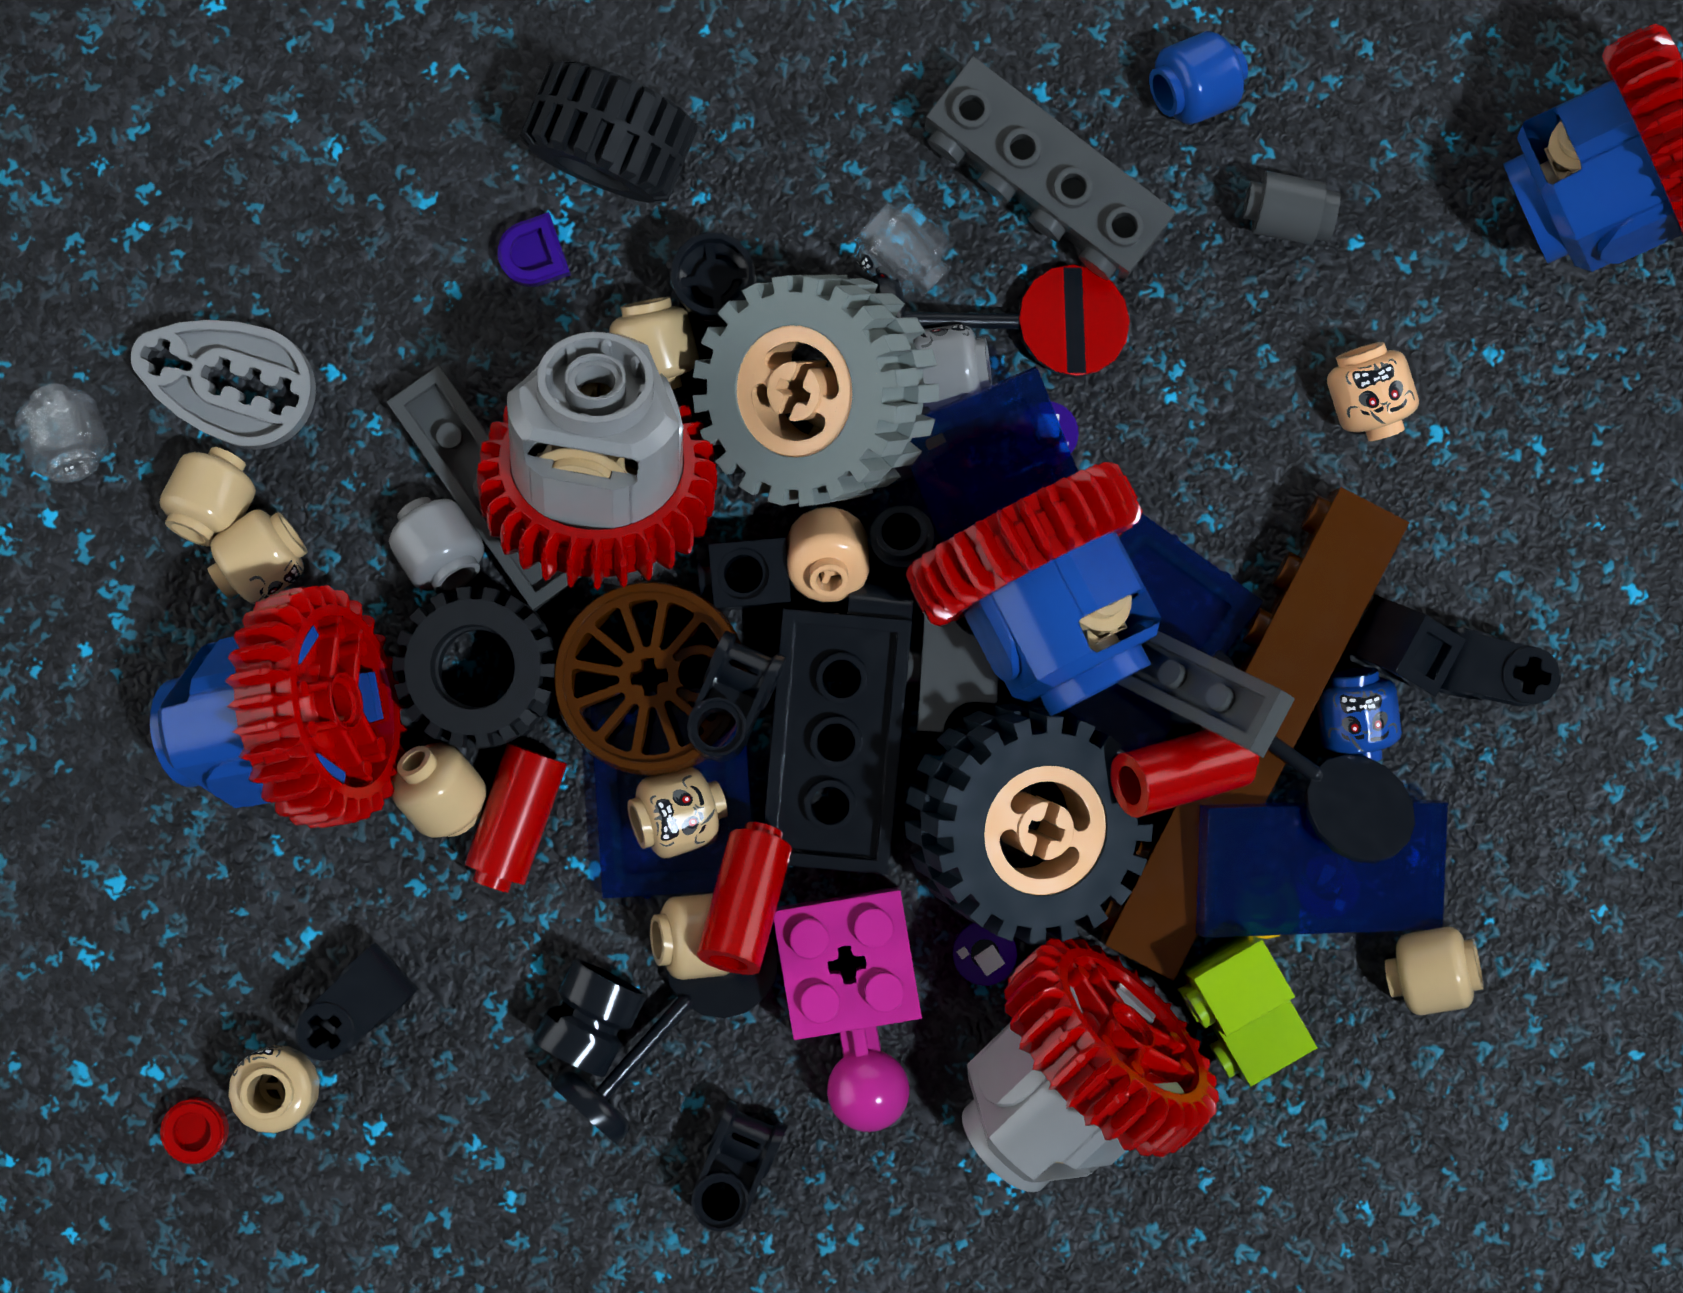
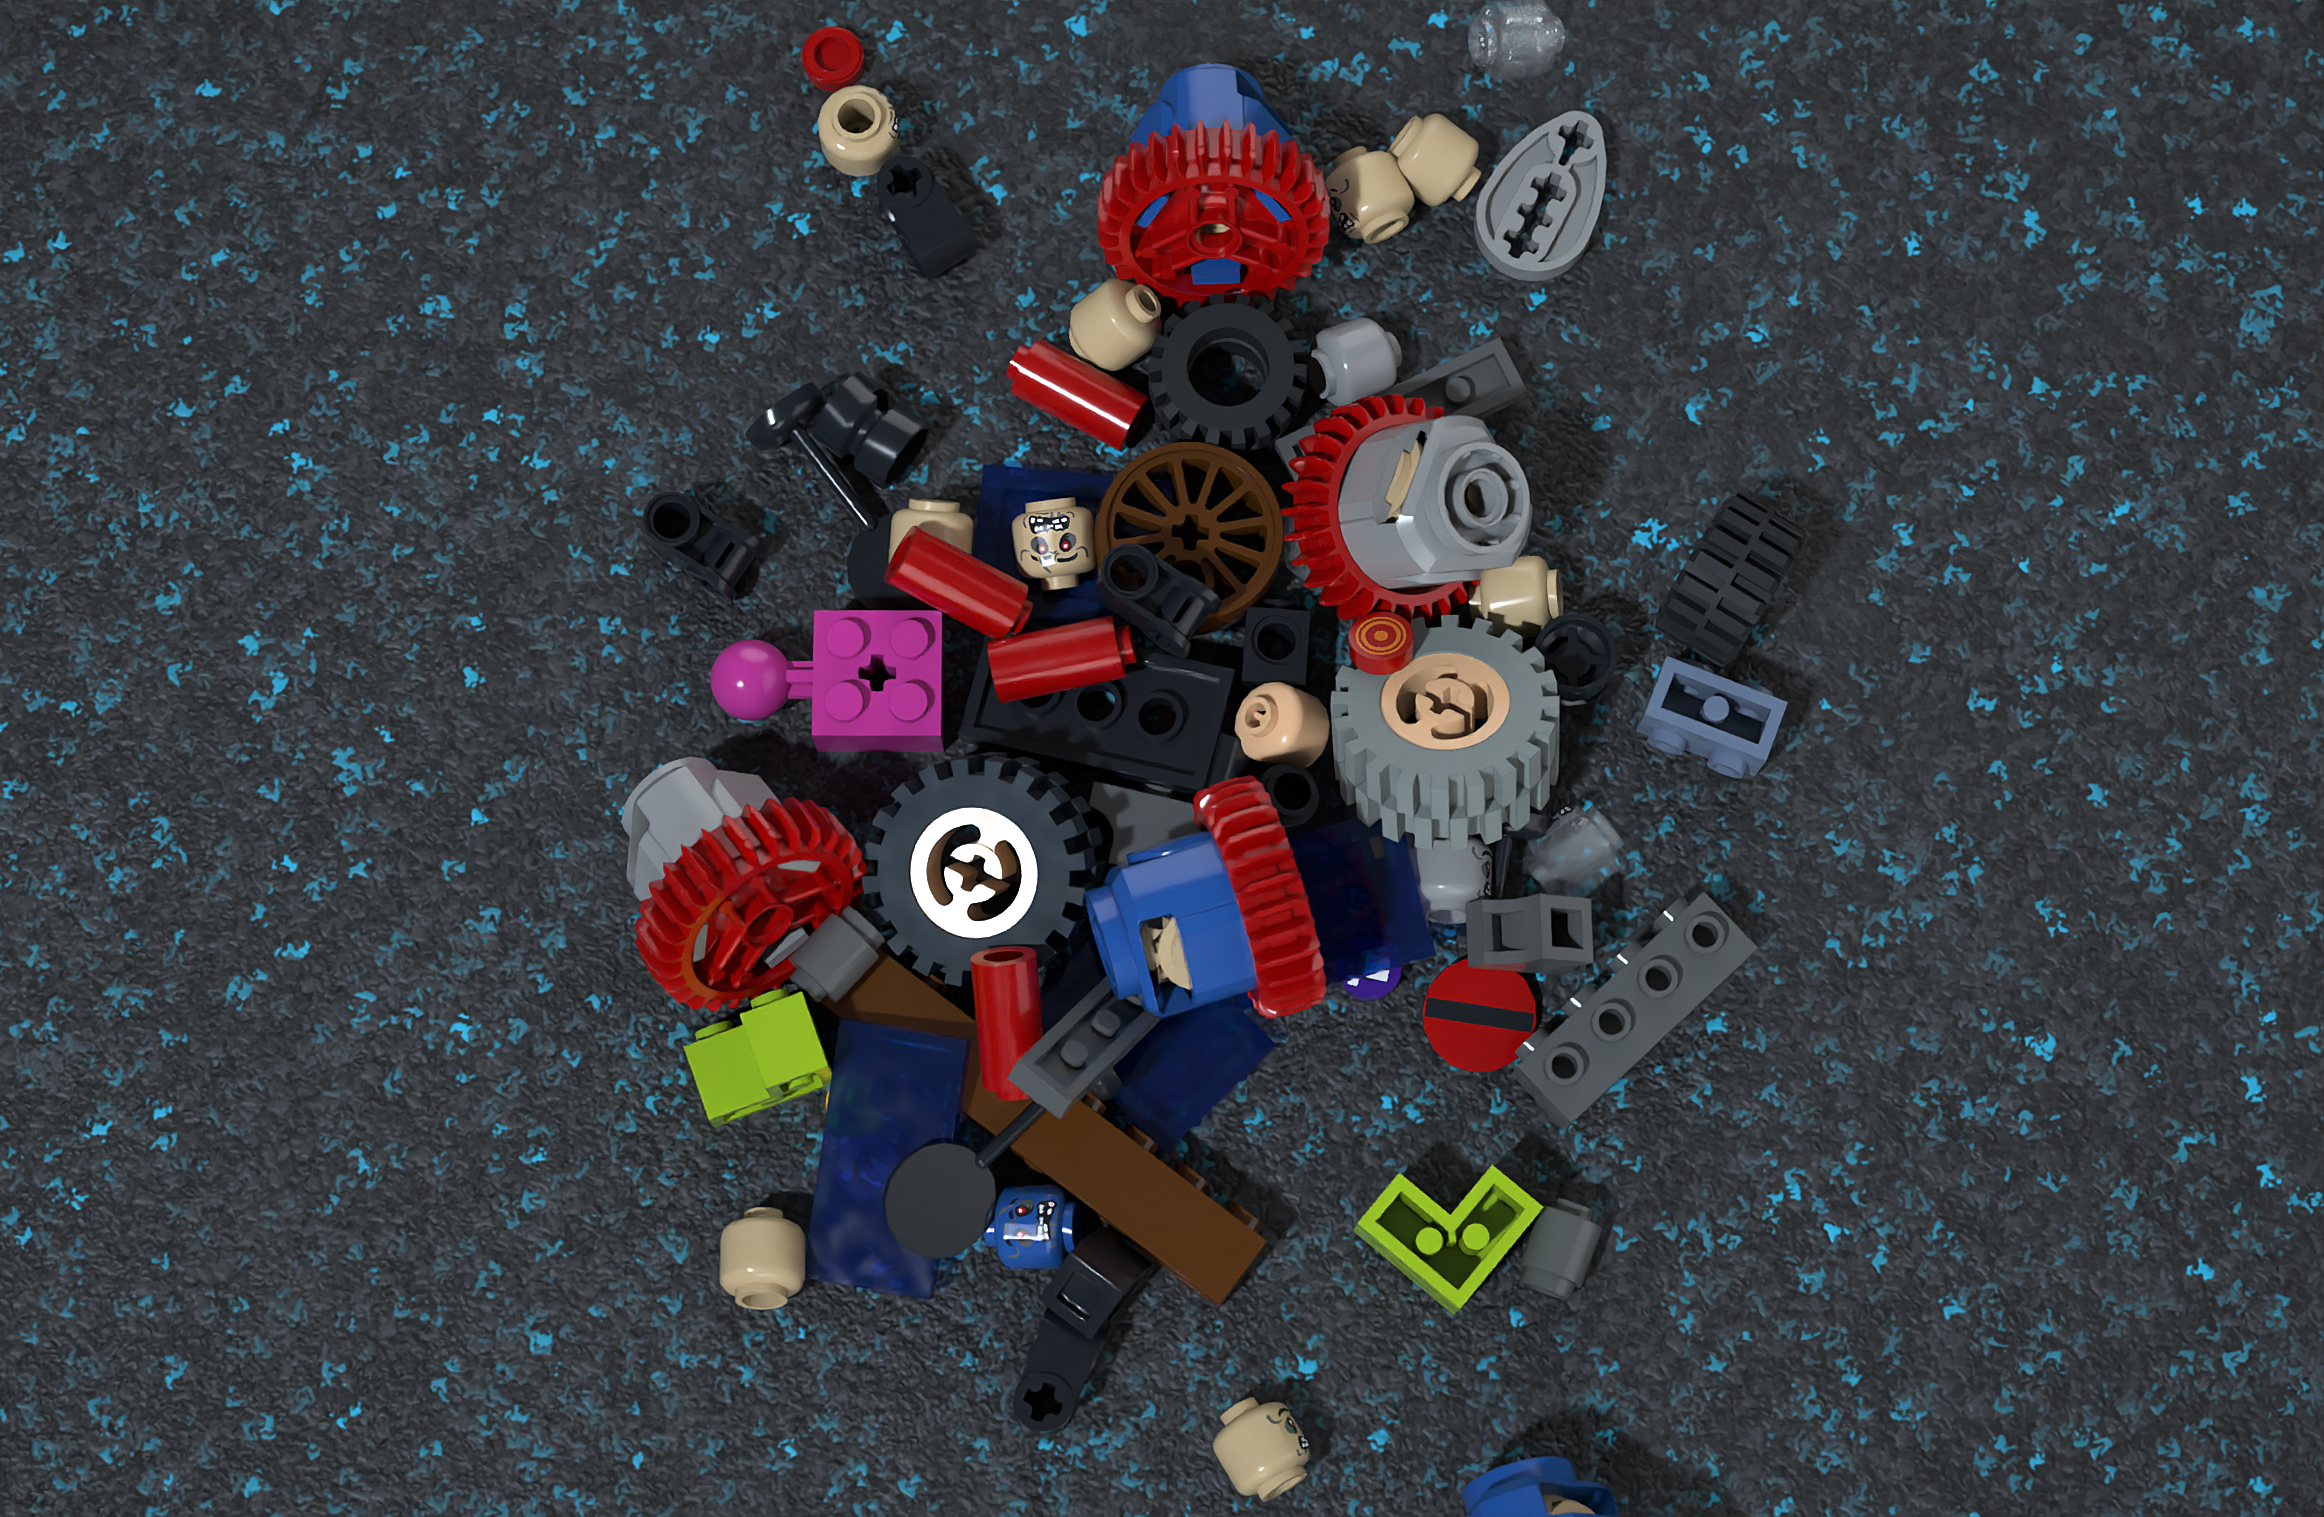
camera: 100 degrees right, 10 degrees down
(532, 252) = (1626, 502): dark purple tile -> none
(740, 465) = (1381, 643): none -> red tile
(749, 116) = (1711, 717): none -> sand blue brick
(802, 784) = (1061, 658): none -> red brick
(983, 955) = (857, 811): dark purple tile -> none
(998, 278) = (1531, 934): none -> dark grey brick
(1144, 953) = (835, 956): none -> dark grey brick
(1198, 78) = (1706, 1177): blue head -> none
(1316, 310) = (1442, 1250): none -> lime brick
(1372, 391) = (1360, 1299): light nougat head -> none
(1531, 461) = (1261, 1448): none -> tan head

